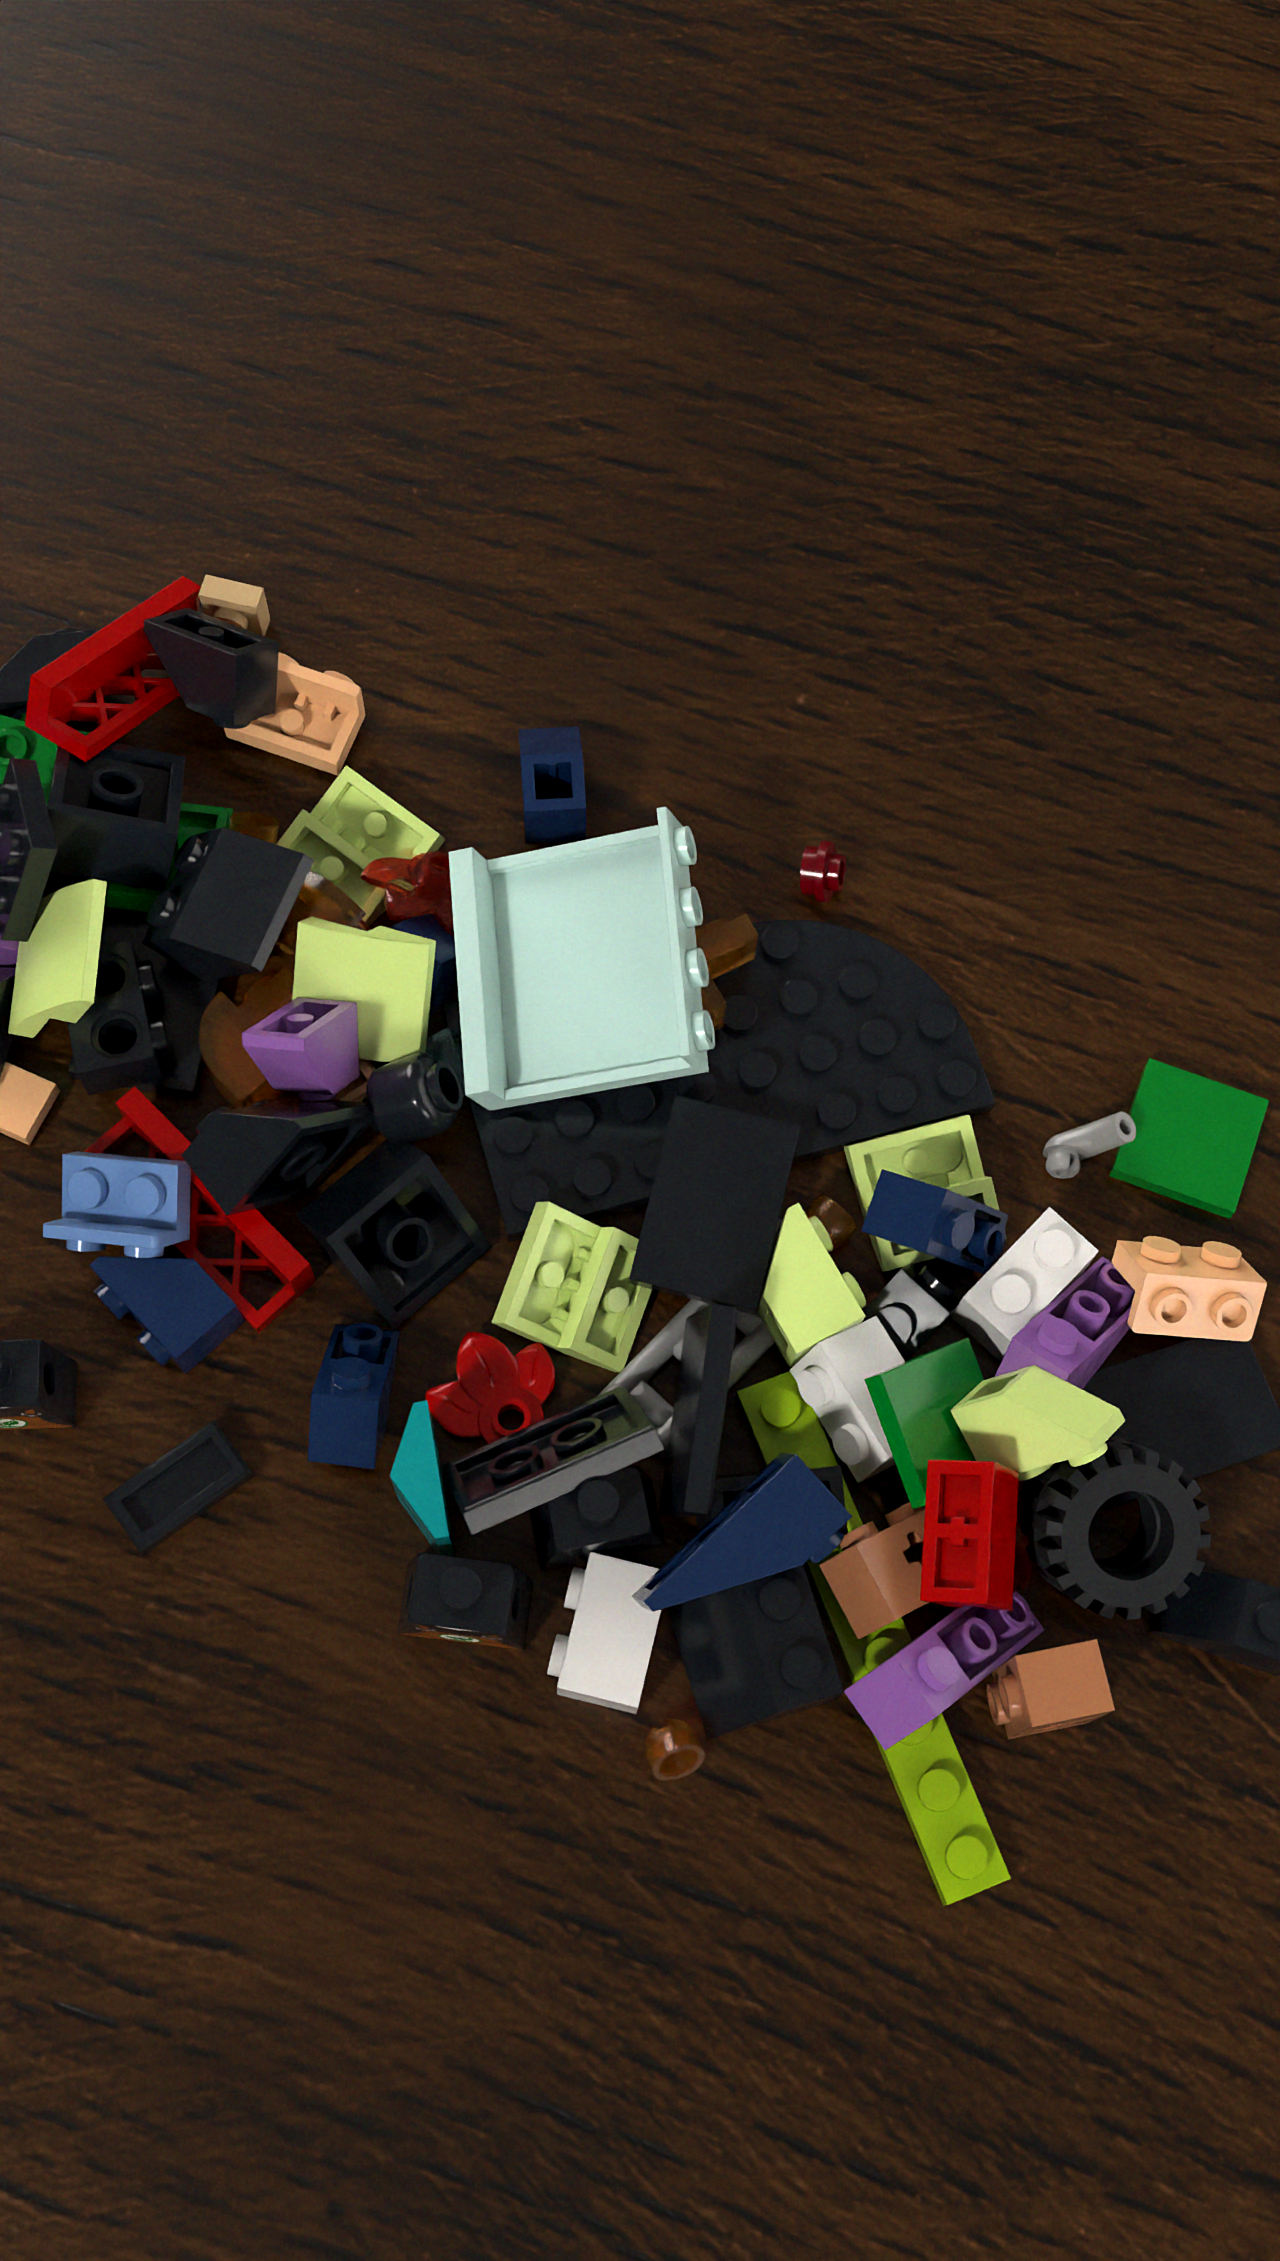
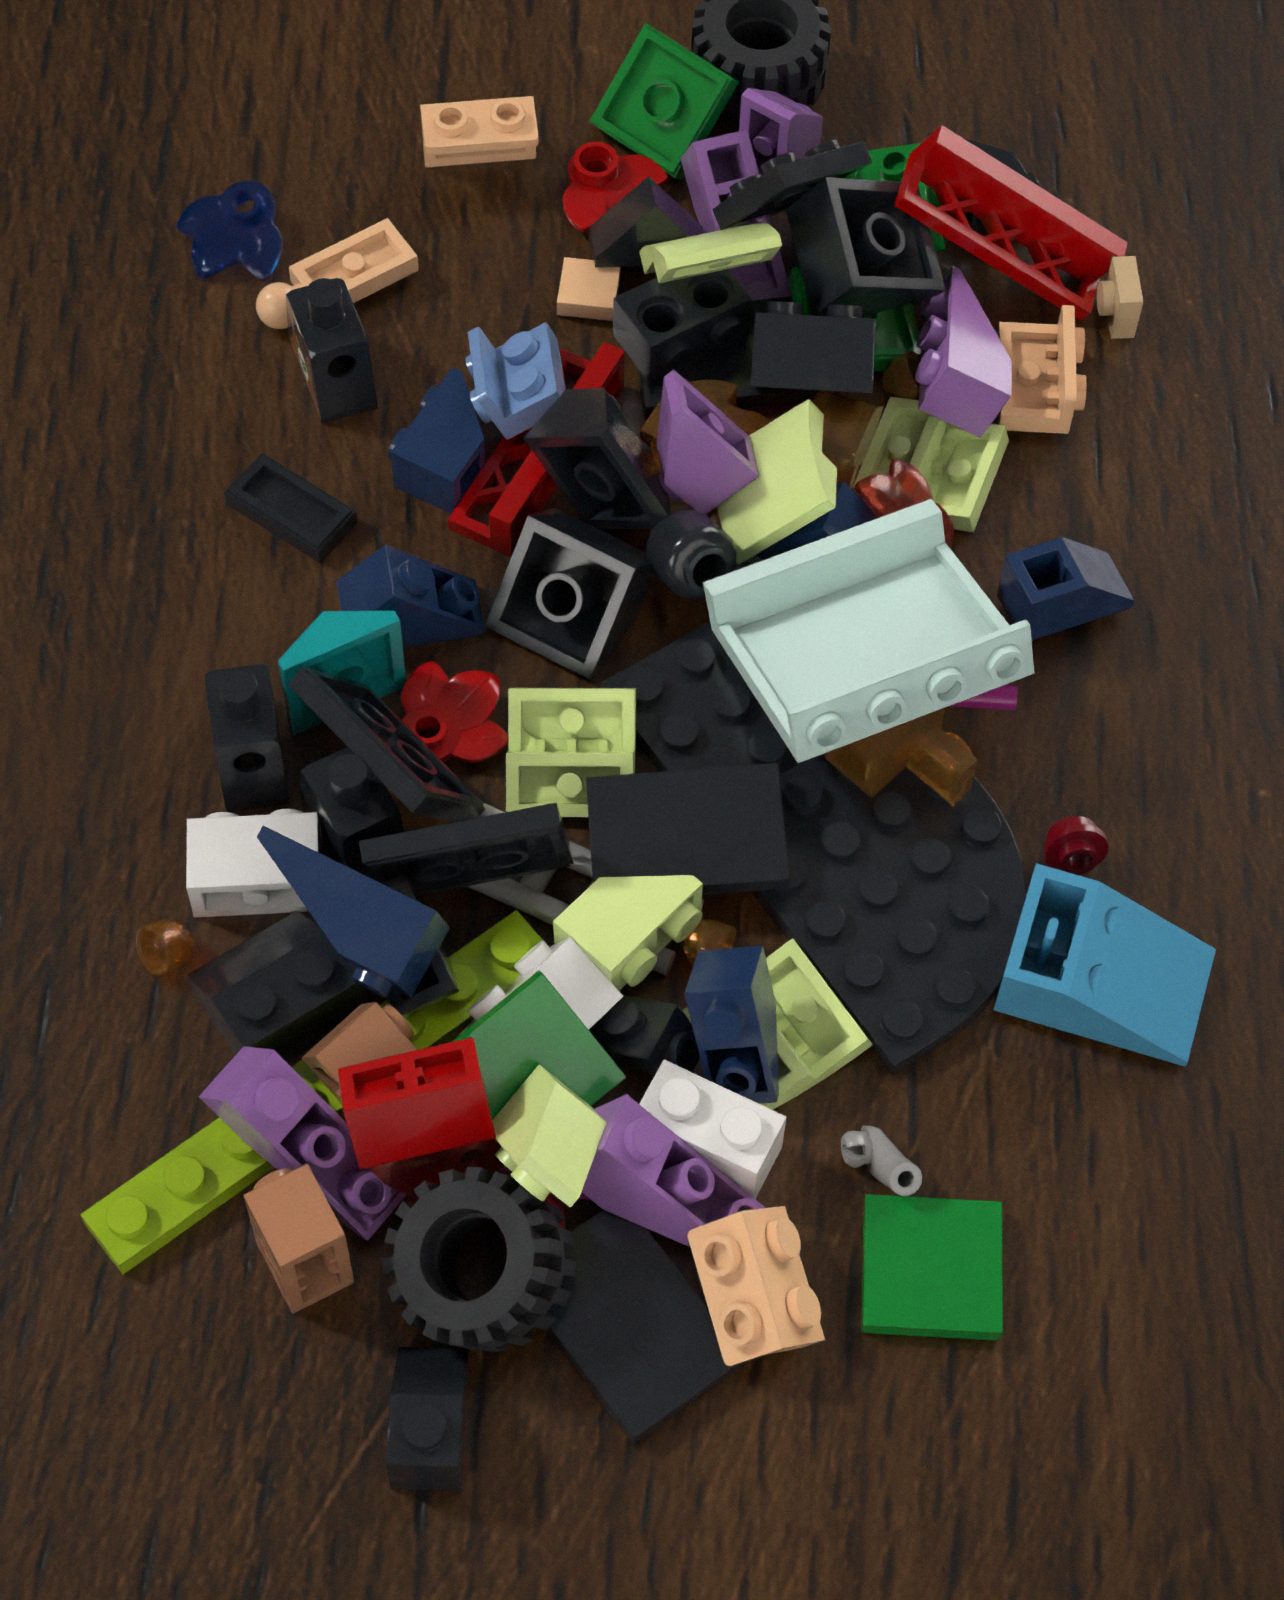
camera: 75 degrees right, 10 degrees down
(217, 666) = (1041, 282): black slope -> none
(264, 773) = (962, 362): none -> medium lavender slope
(953, 894) = (1104, 968): none -> dark azure slope

